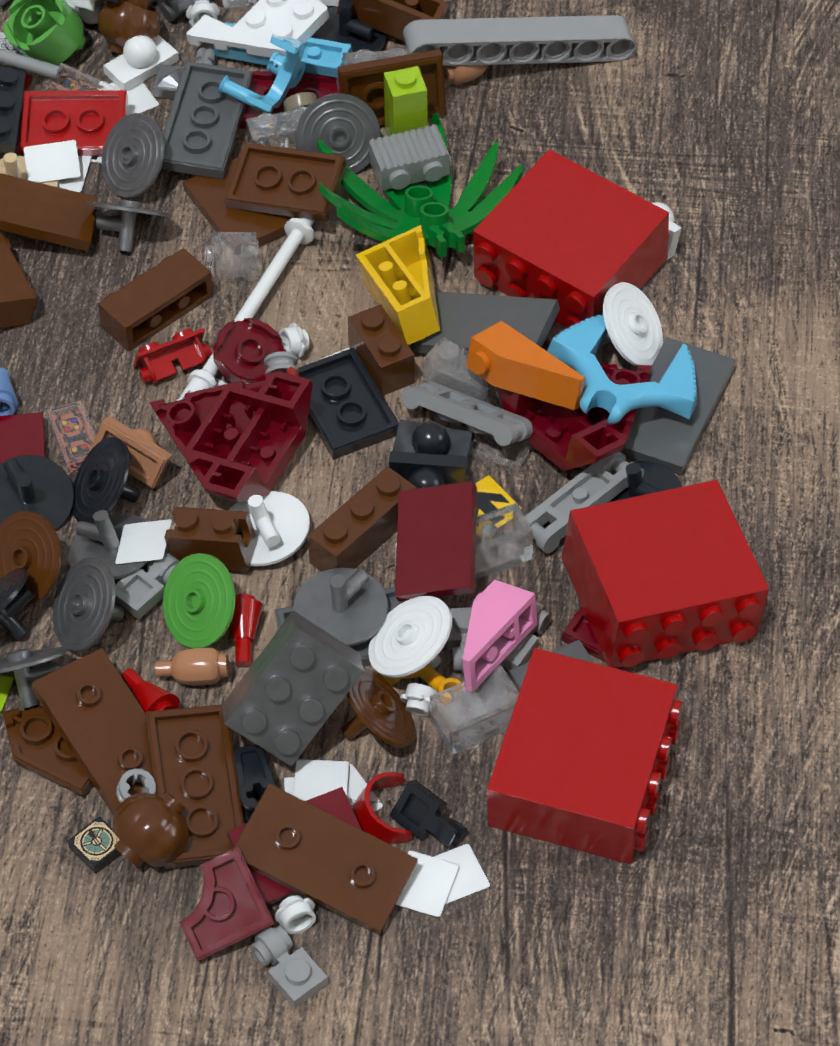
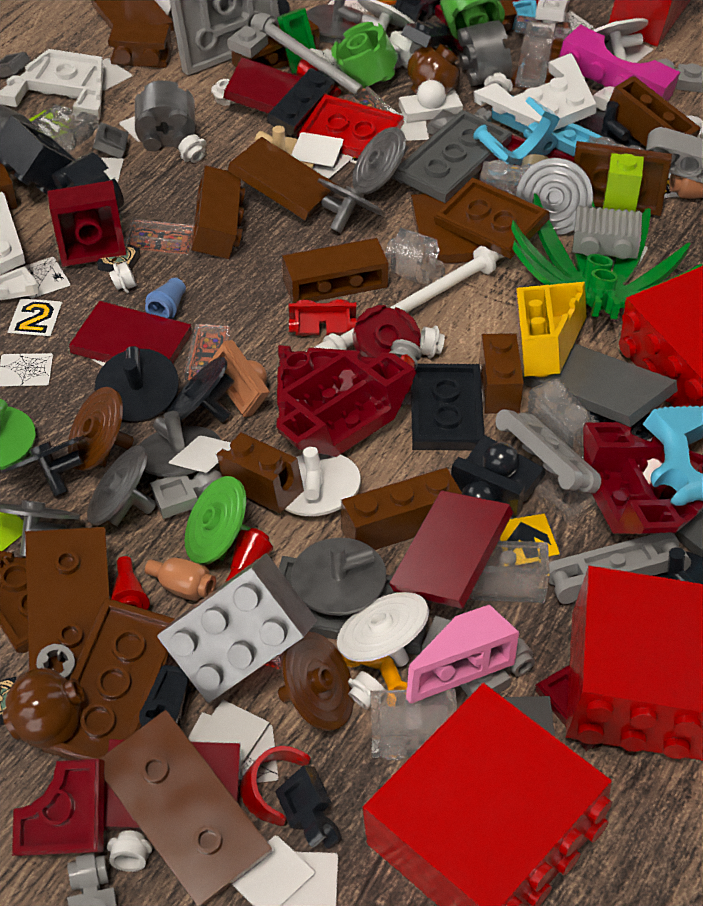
camera: 25 degrees right, 5 degrees down
(521, 366) = (612, 423): orange slope -> none

